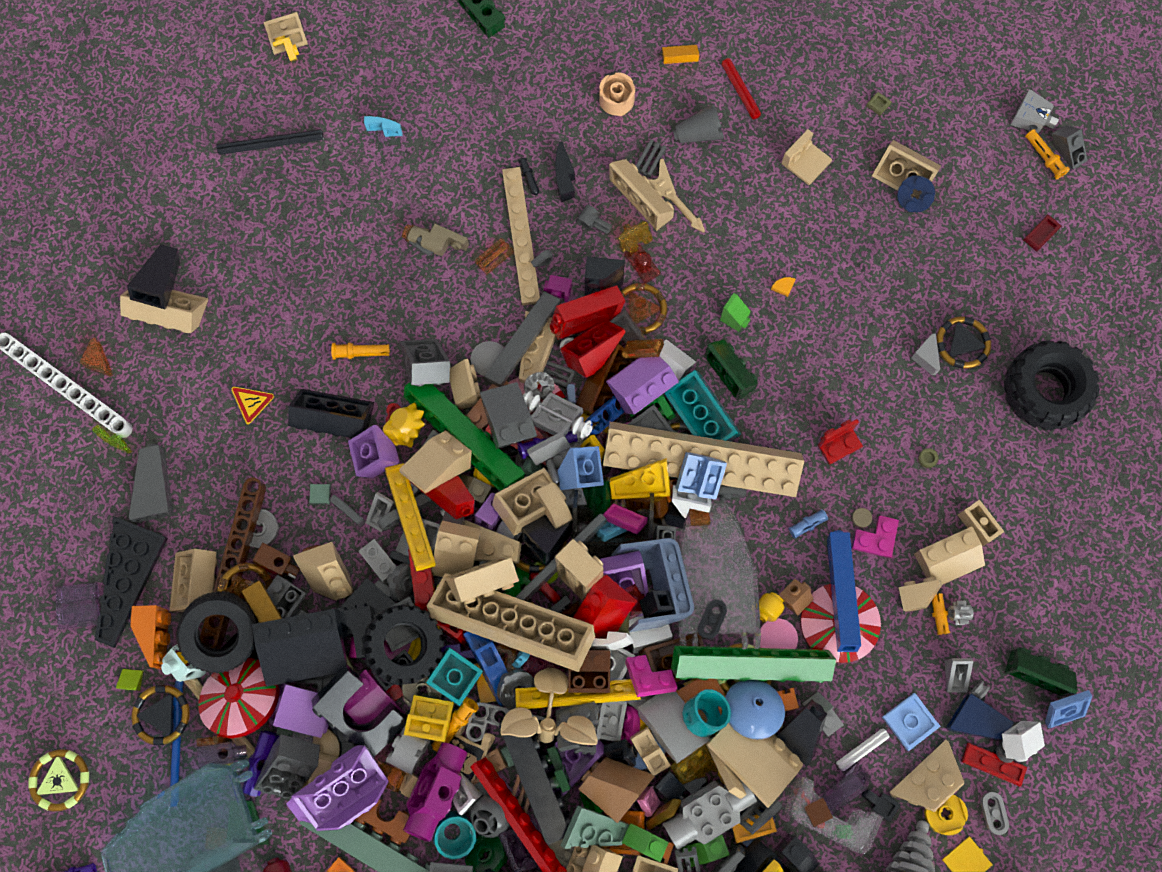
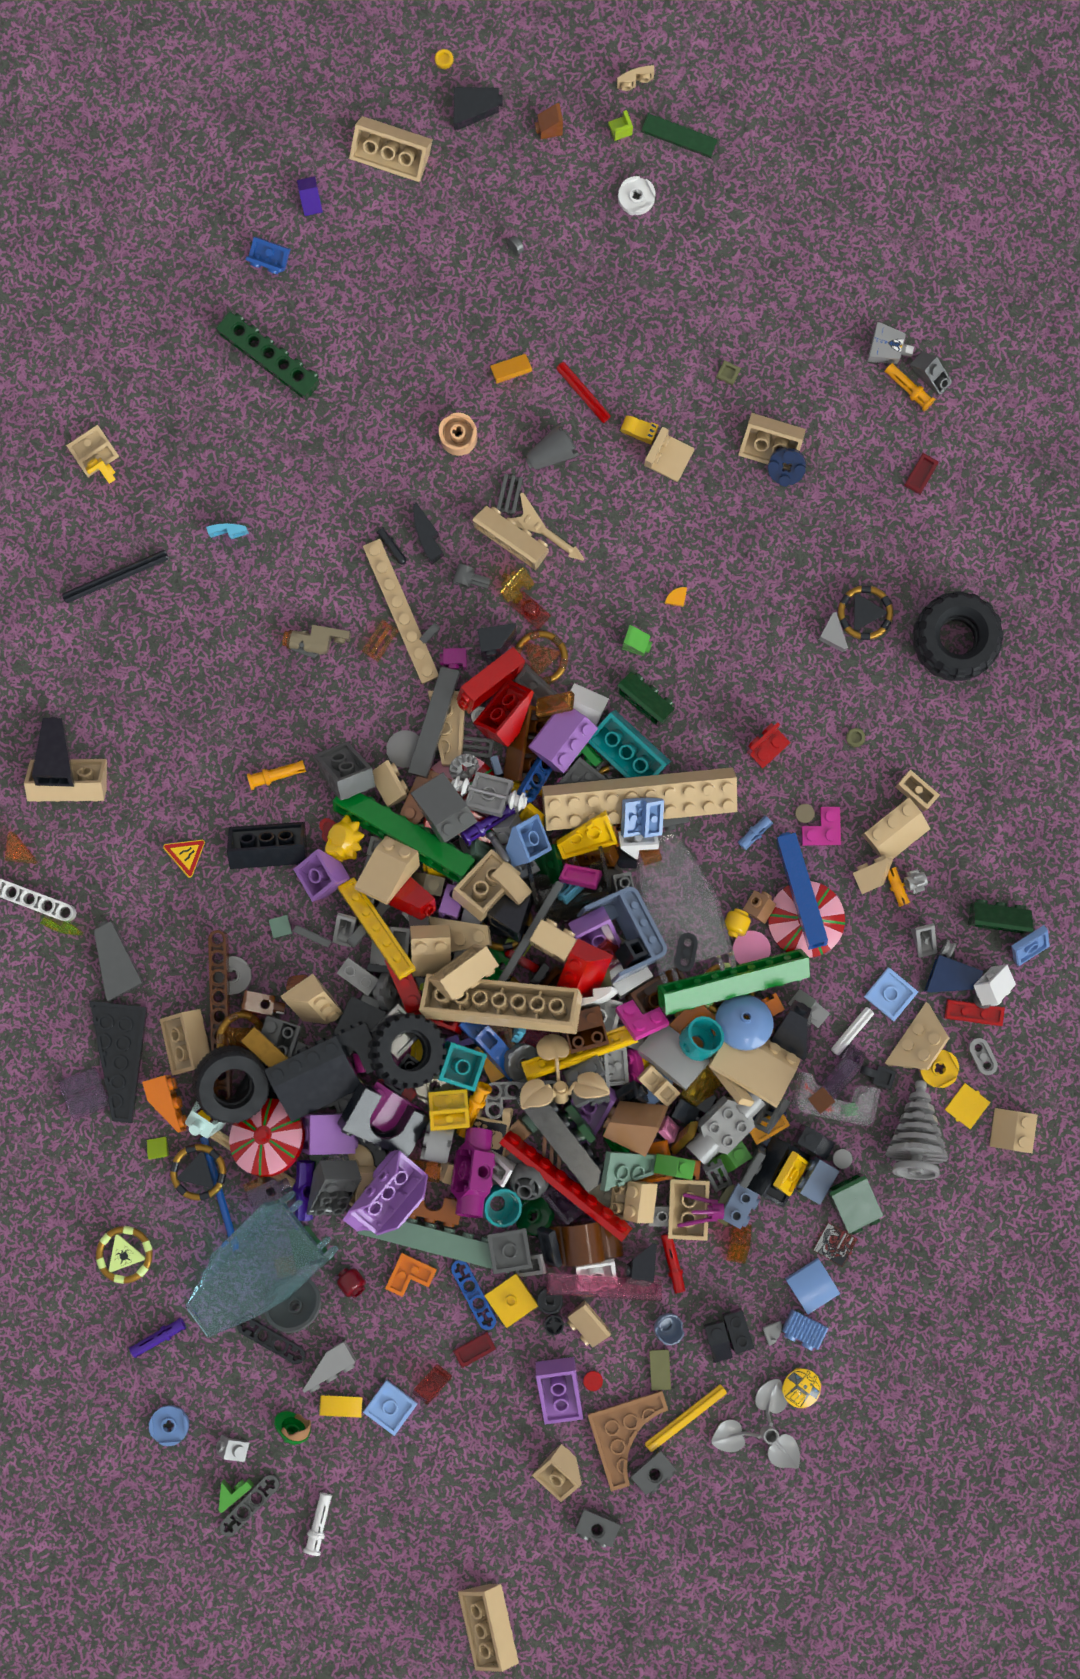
camera: 15 degrees left, 10 degrees up
(548, 448) = (491, 829): light grey tile -> none
(785, 130) = (639, 429): none -> yellow leg

